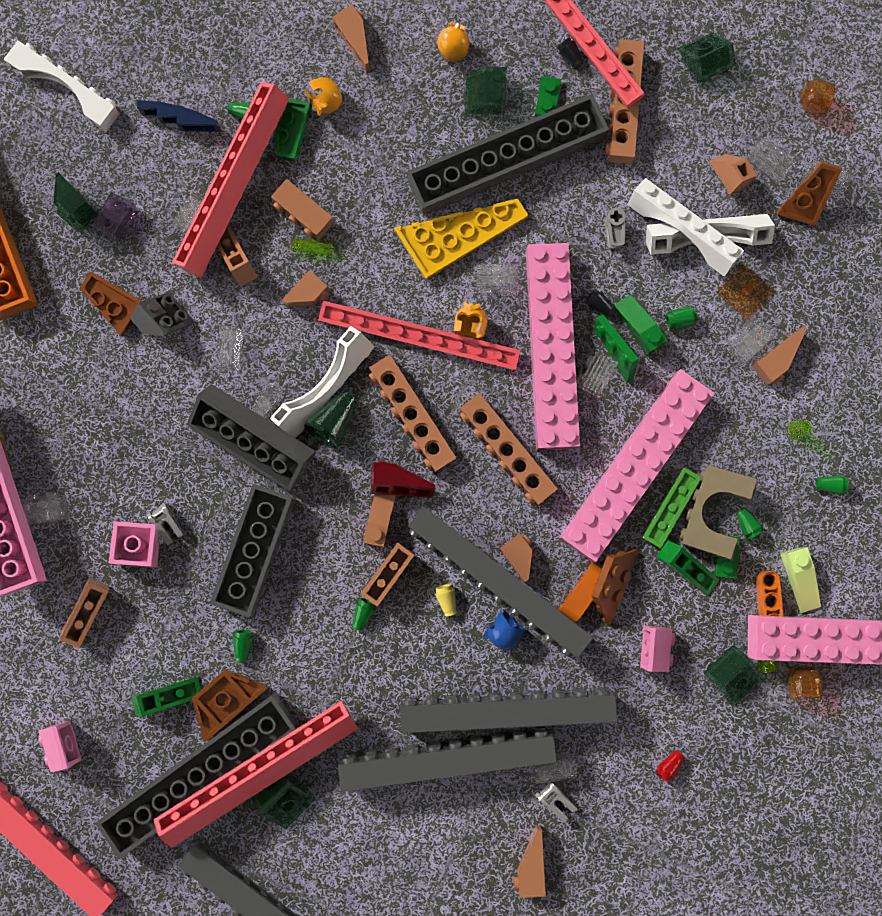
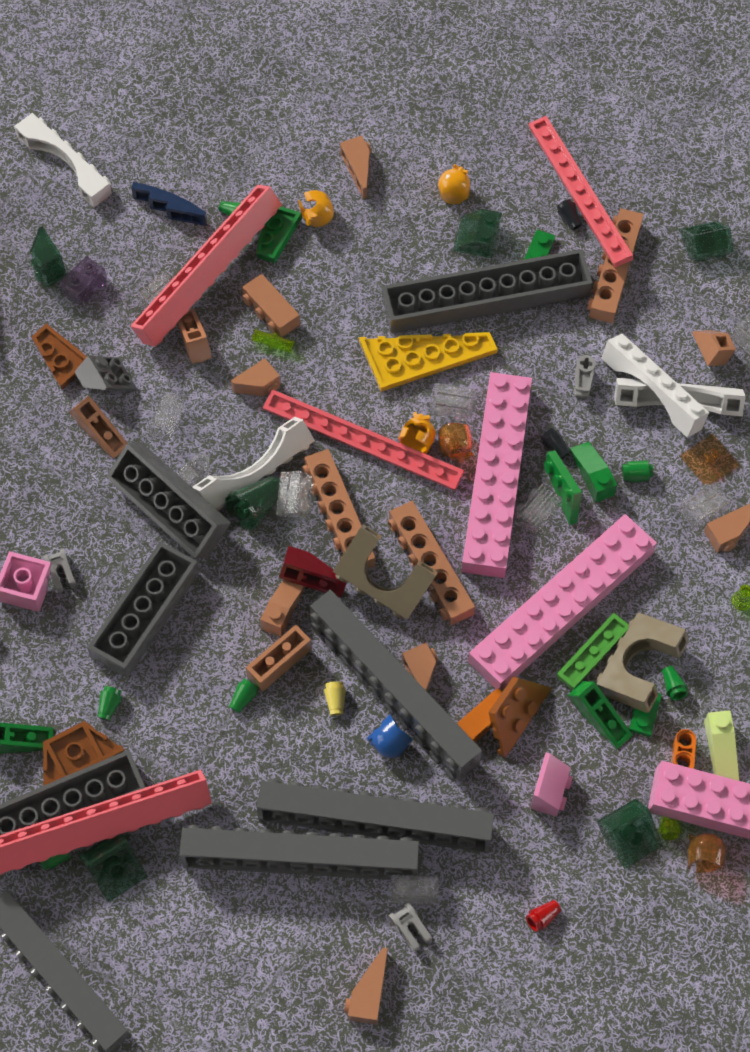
camera: 10 degrees right, 20 degrees down
(167, 371) = (98, 426): none -> nougat slope
(367, 408) = (294, 495): none -> clear brick
(486, 494) = (400, 599): none -> dark tan arch
(507, 322) = (455, 441): none -> clear orange helmet

